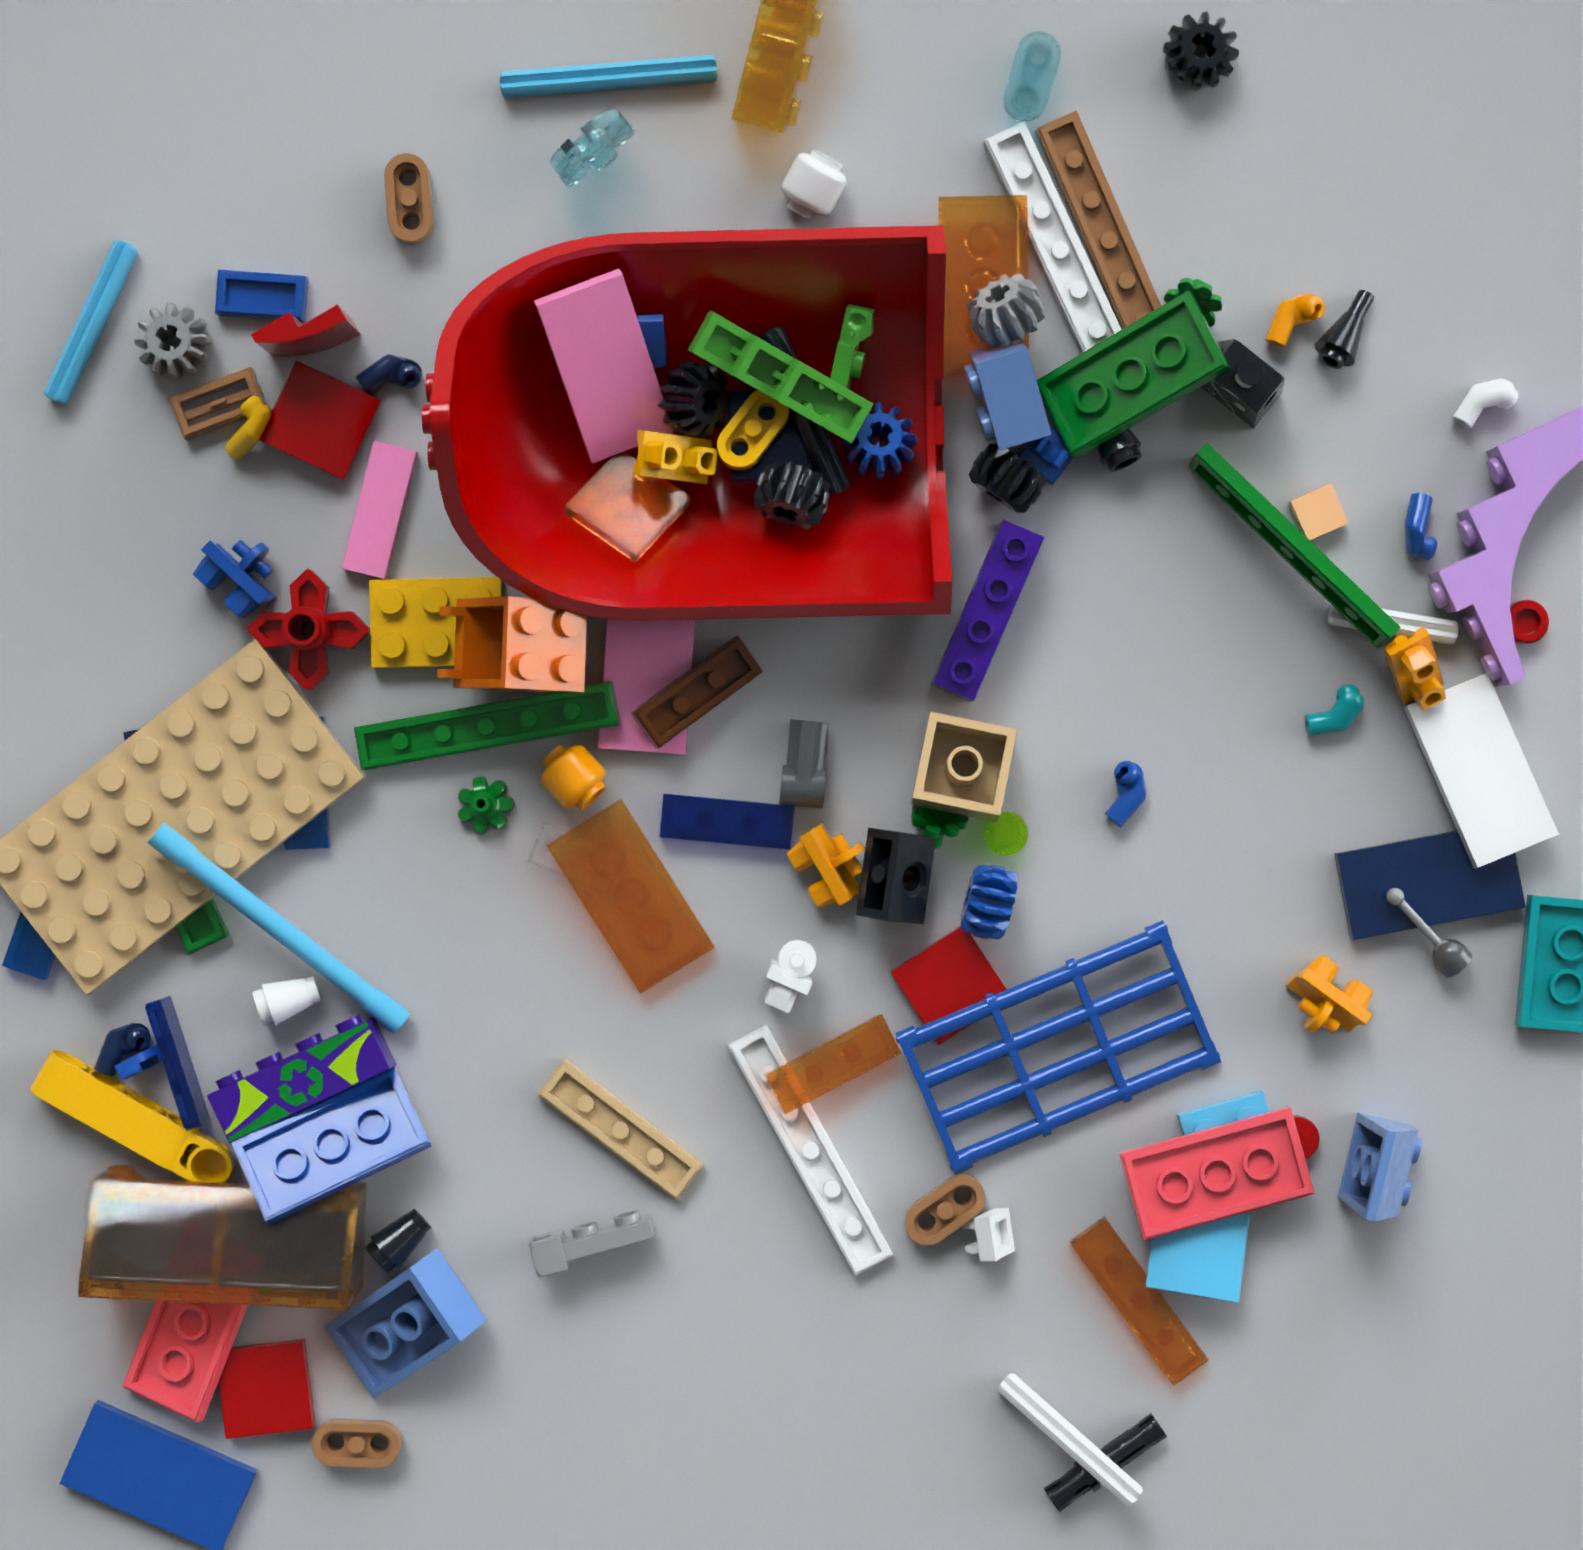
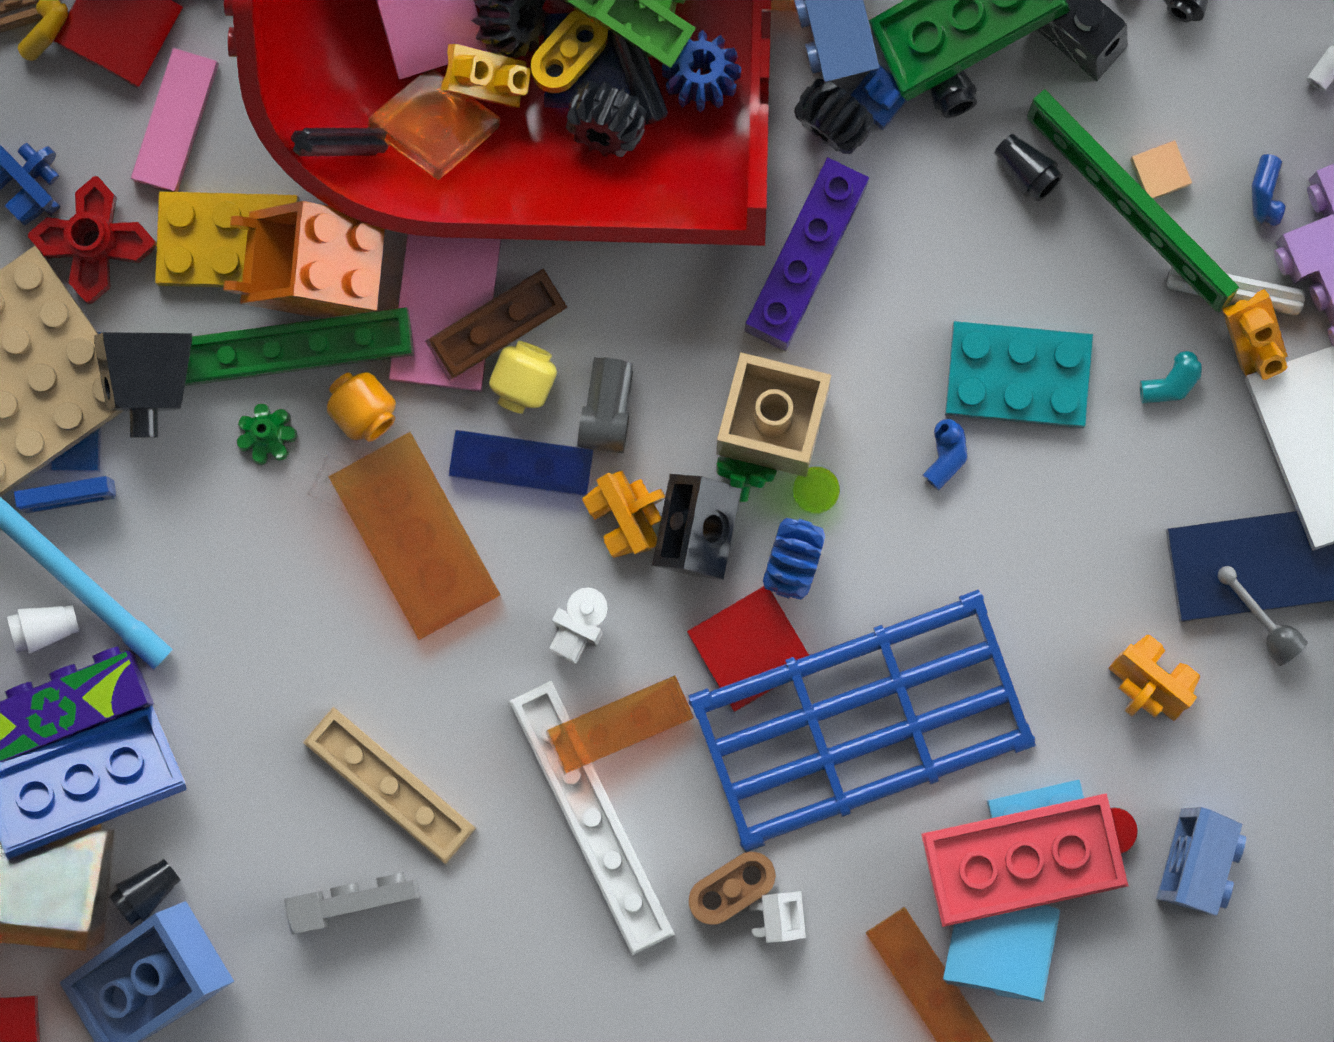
camera: 10 degrees right, 5 degrees down
(299, 874) = (65, 494): none -> blue tile
(366, 761) = (143, 375): none -> black torso
(539, 536) = (339, 141): none -> black axle
(724, 741) = (523, 377): none -> light yellow head
(1191, 713) = (1019, 374): none -> teal plate
(1193, 516) = (1028, 167): none -> black cone

